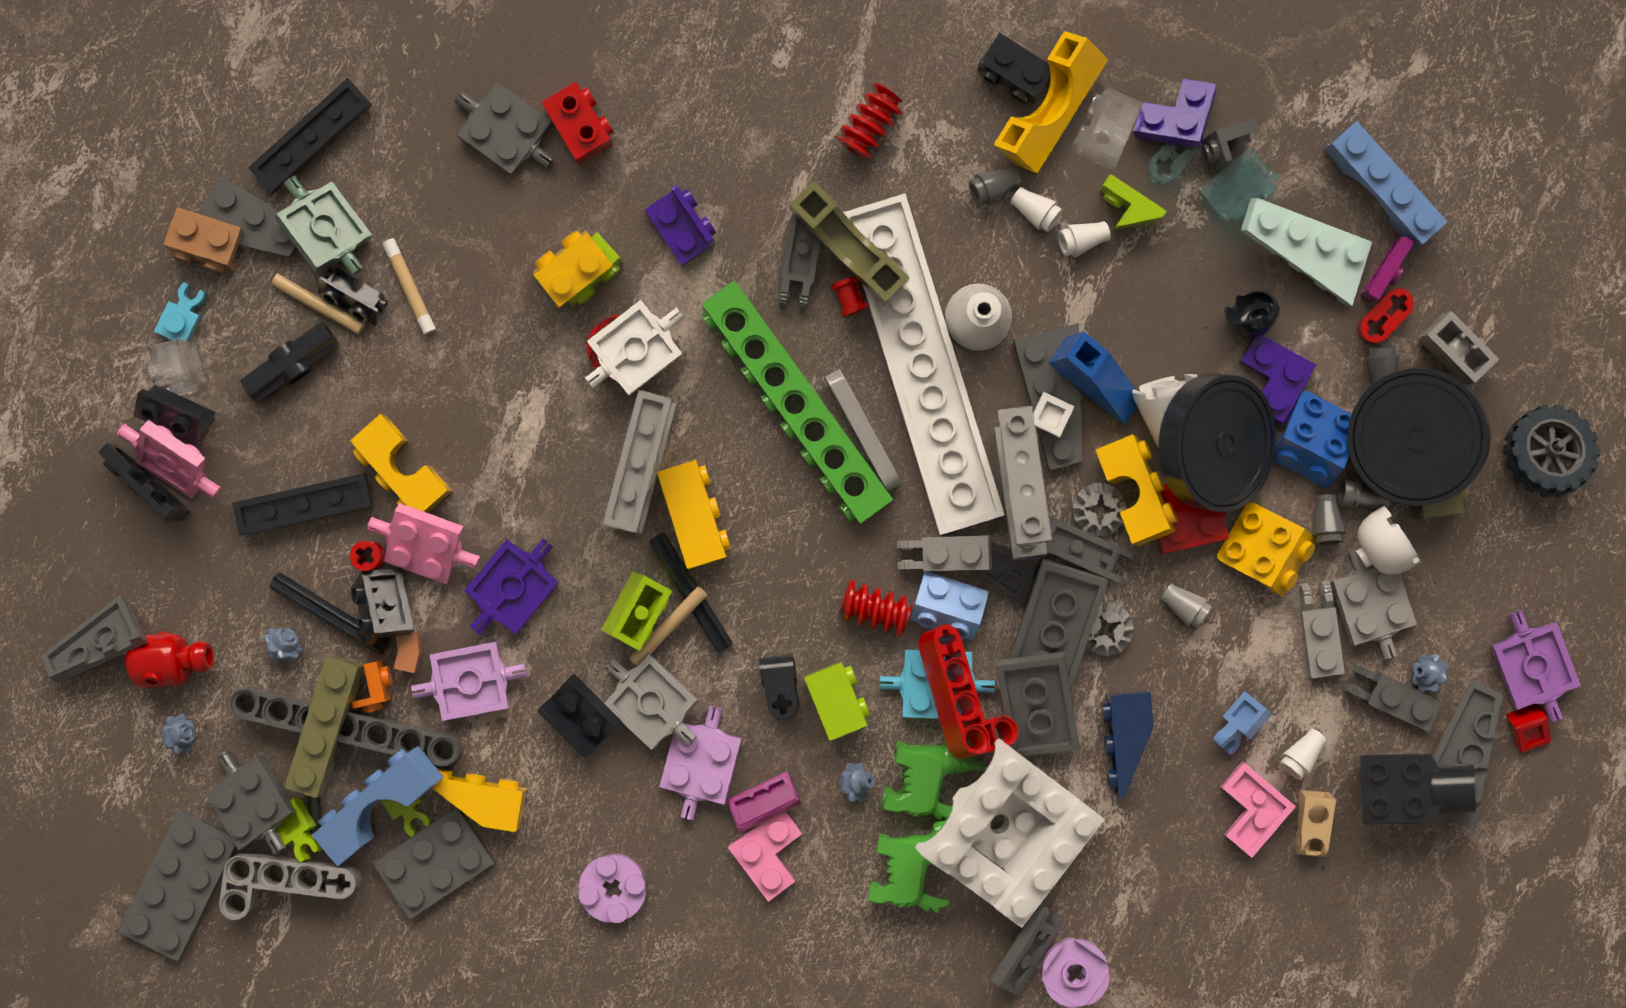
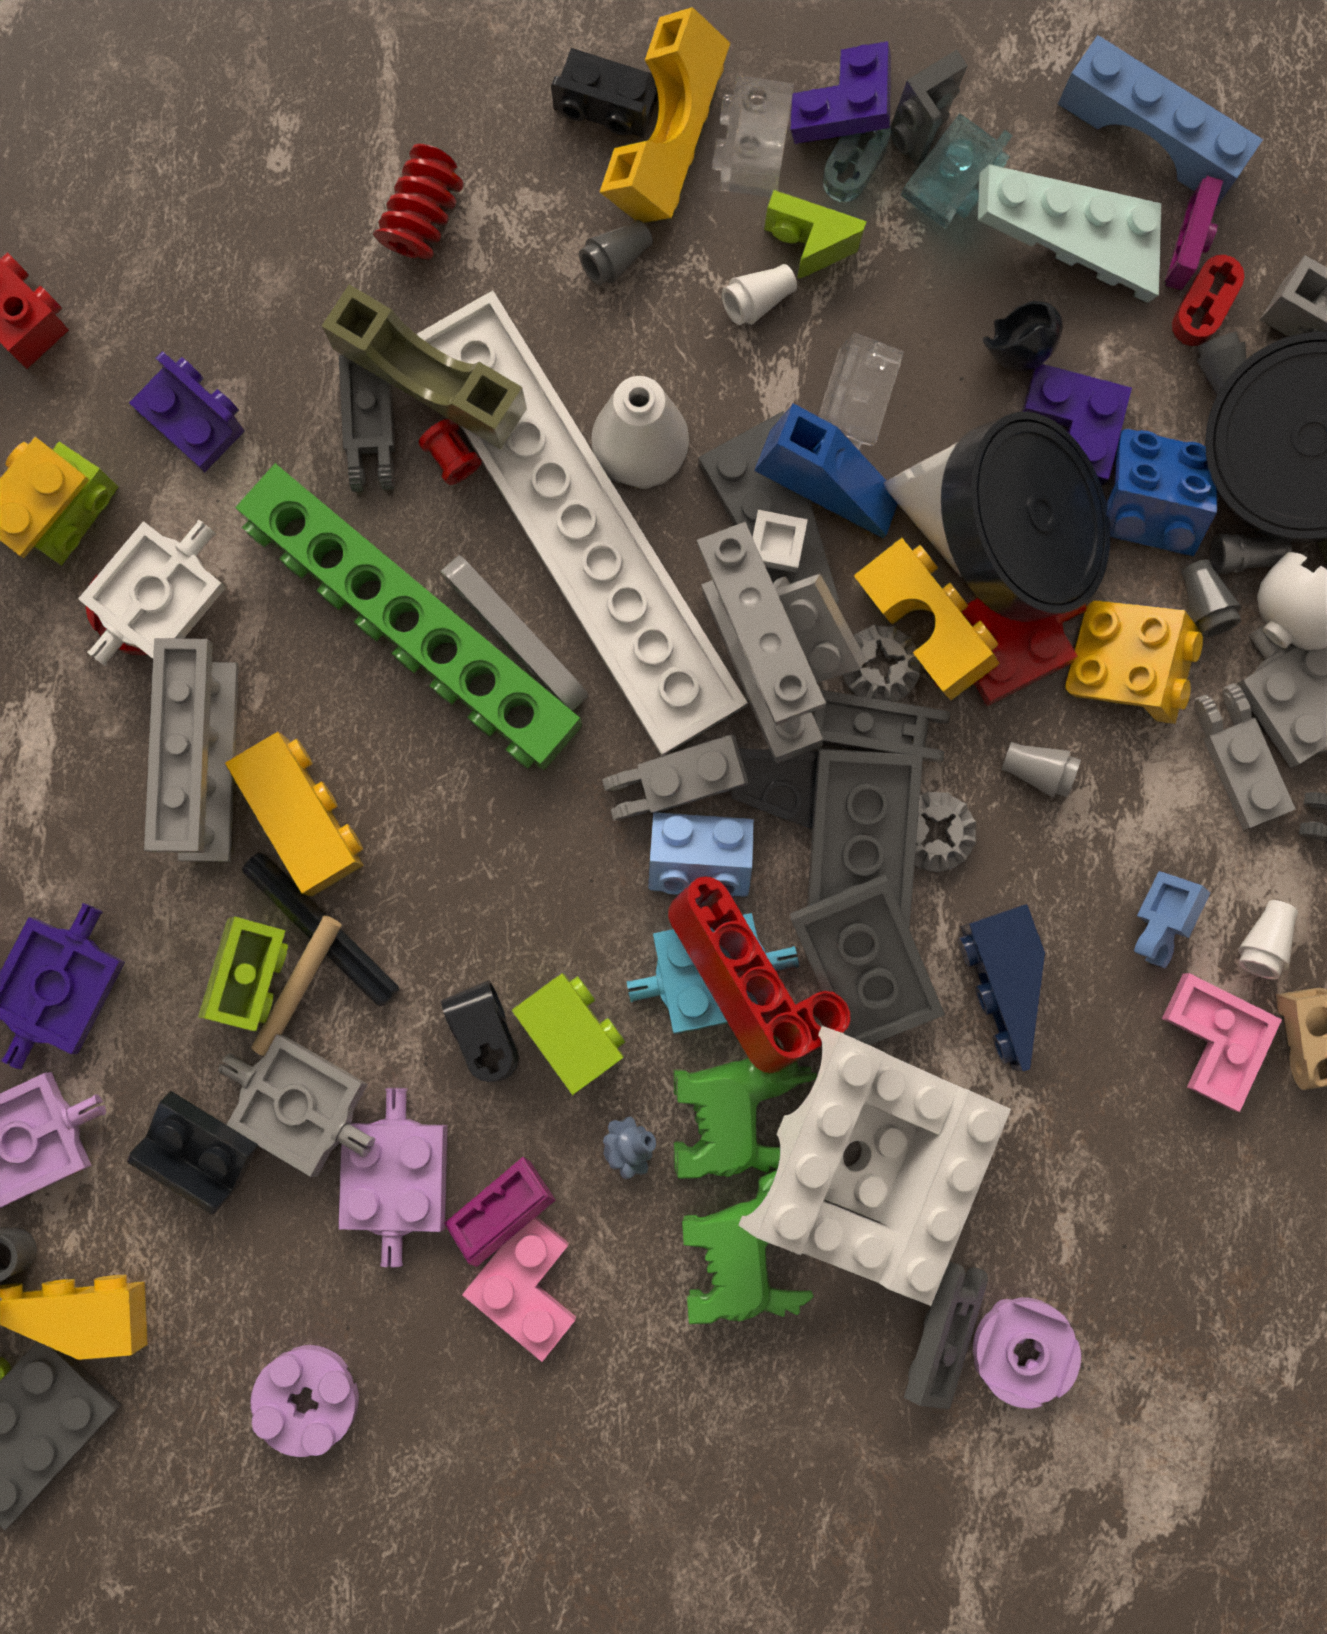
camera: 20 degrees left, 5 degrees down
(875, 608) = (594, 884): red piece -> none
(1037, 209) = (684, 269): white cone -> none
(1061, 480) = (819, 627): none -> light grey bracket
(1131, 323) = (861, 388): none -> clear hinge

